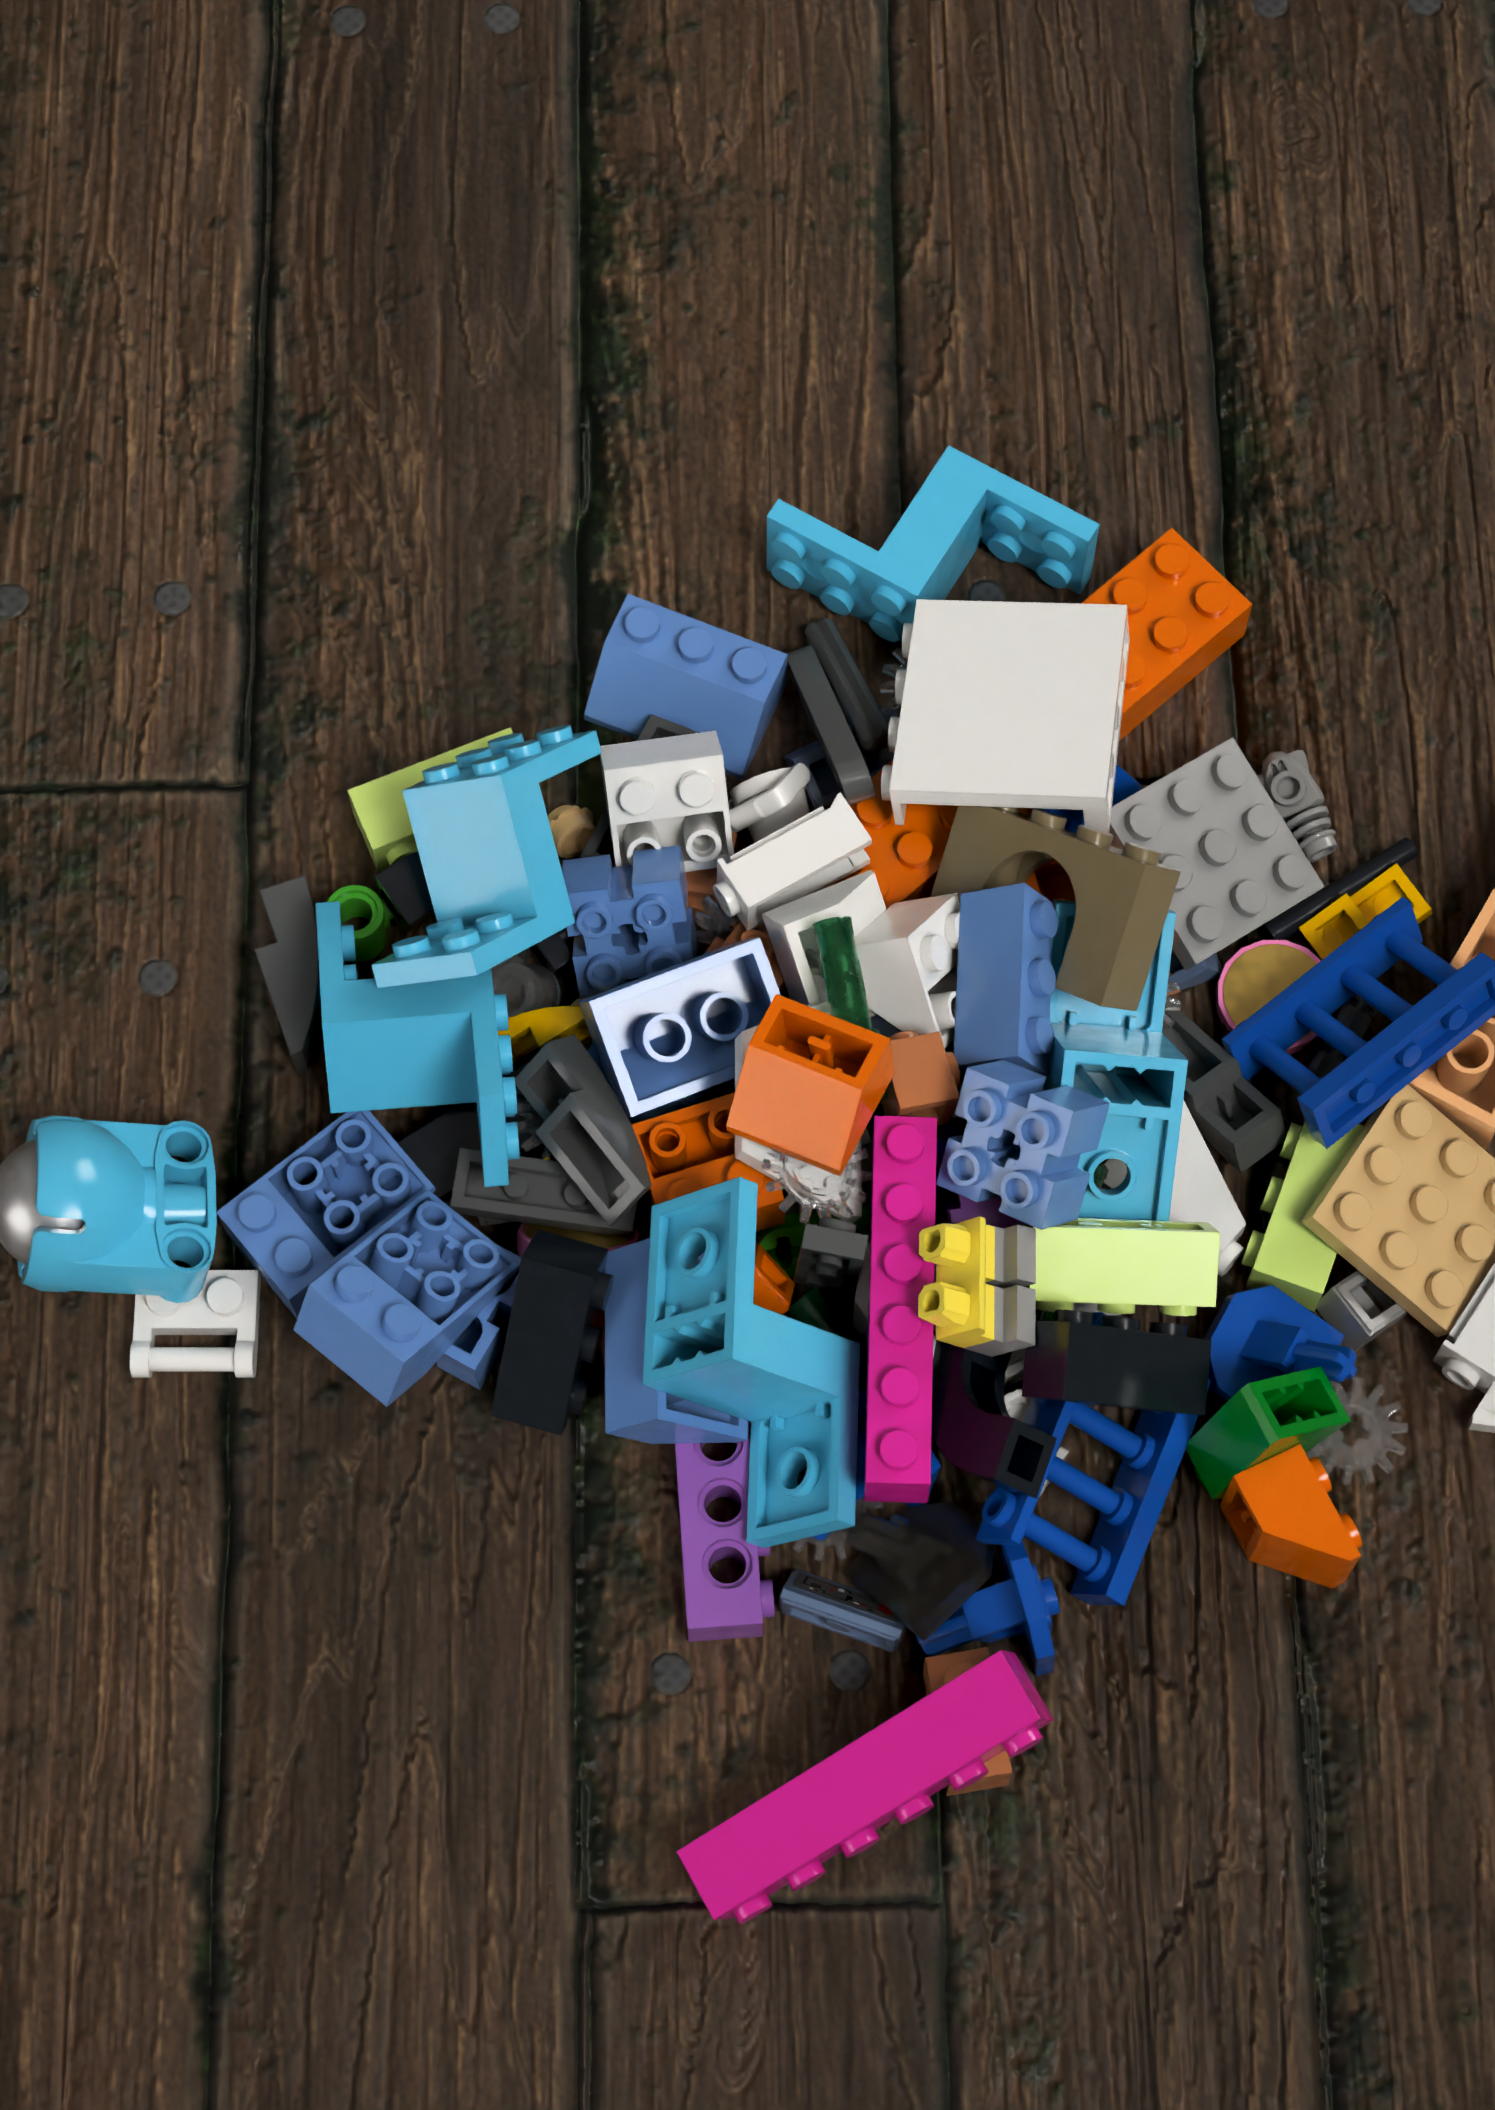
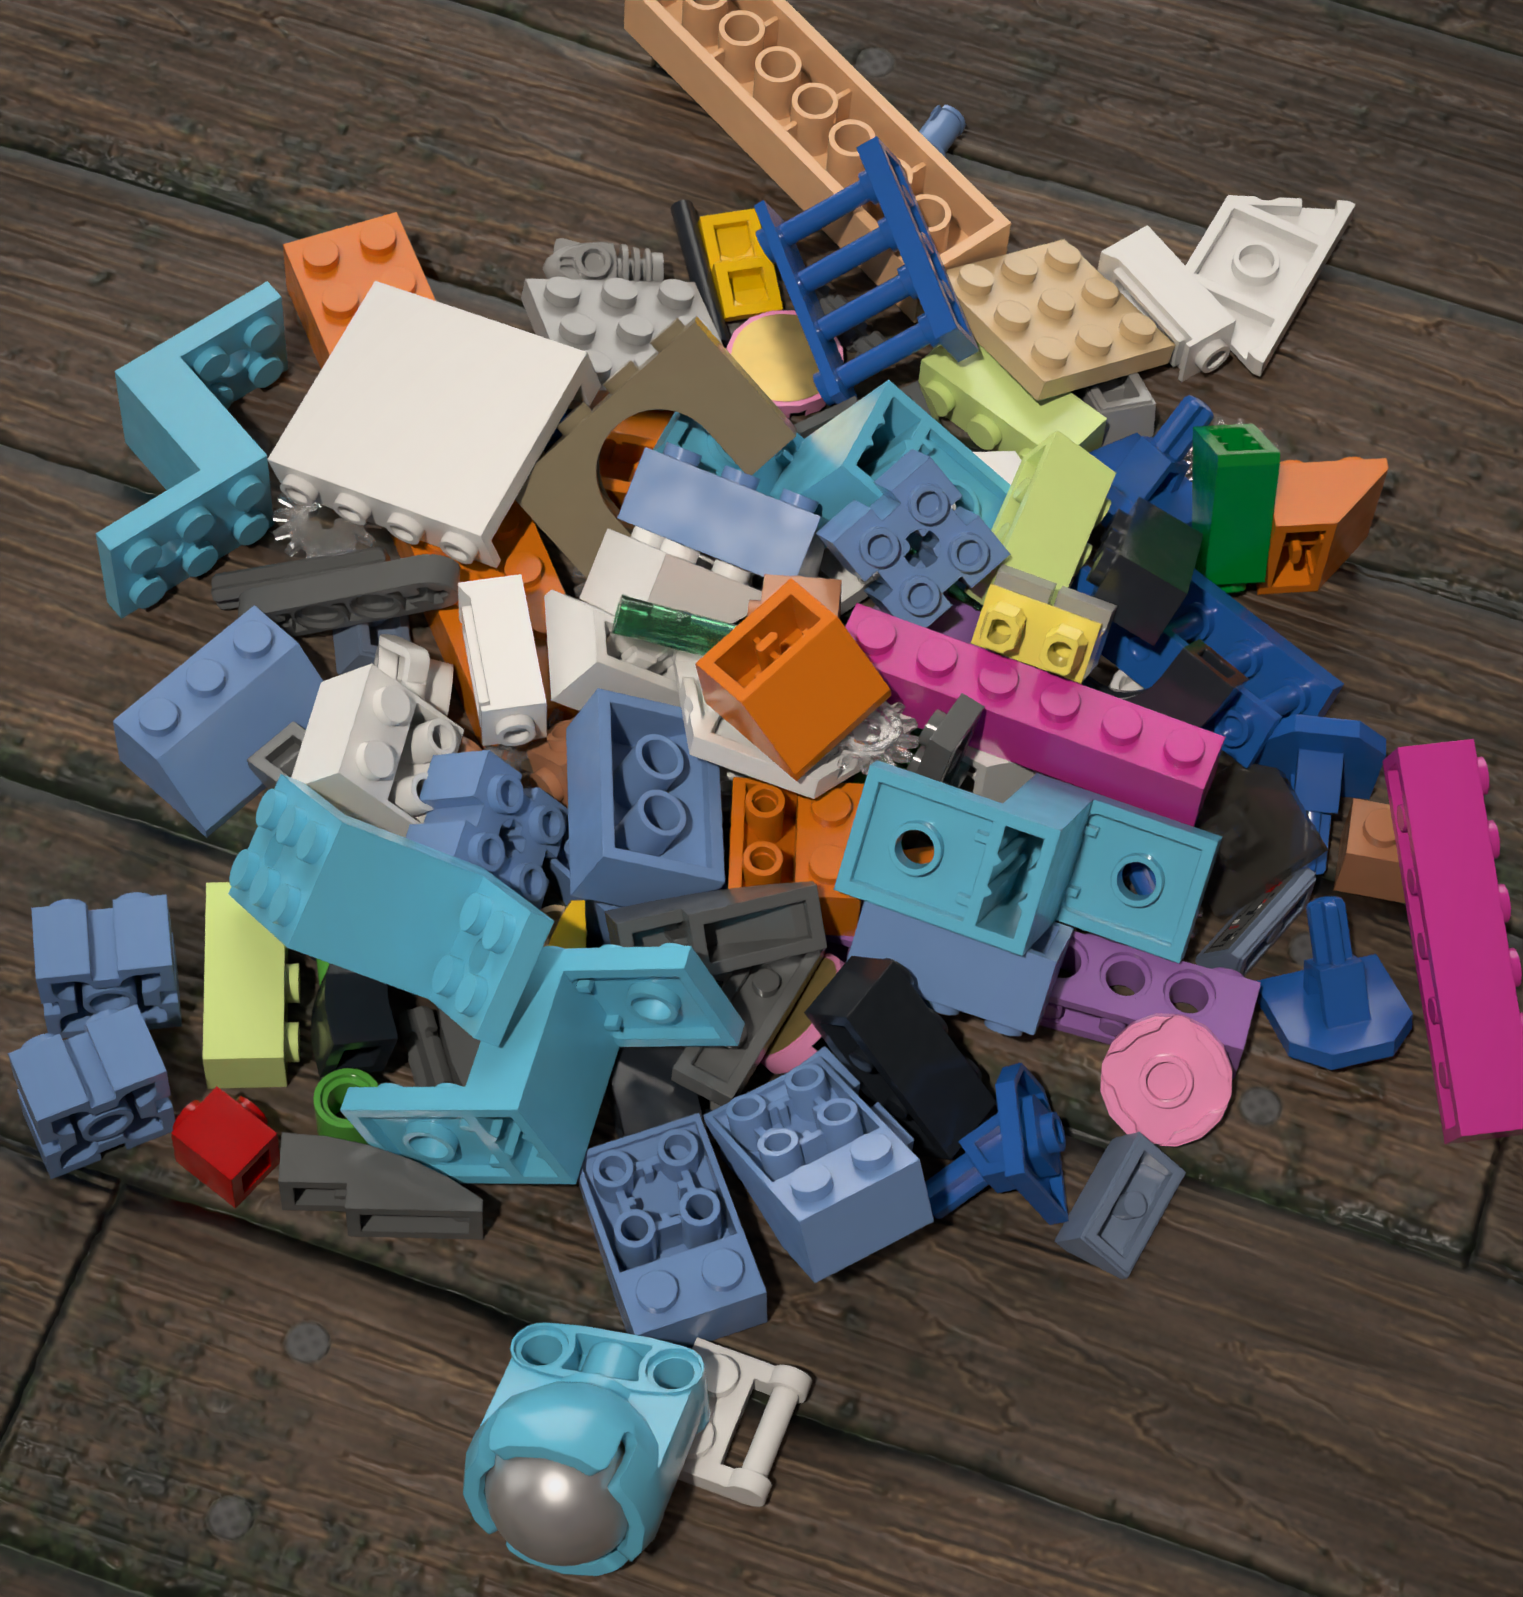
camera: 75 degrees left, 10 degrees down
(287, 719) = (93, 1090): none -> medium blue brick
(292, 840) = (225, 1144): none -> red brick
(404, 684) = (106, 961): none -> medium blue brick
(518, 1468) = (1009, 1152): none -> blue piece
(518, 1580) = (1121, 1205): none -> sand blue slope
(640, 1574) = (1166, 1079): none -> bright pink tile
(778, 1703) = (1340, 1004): none -> blue piece

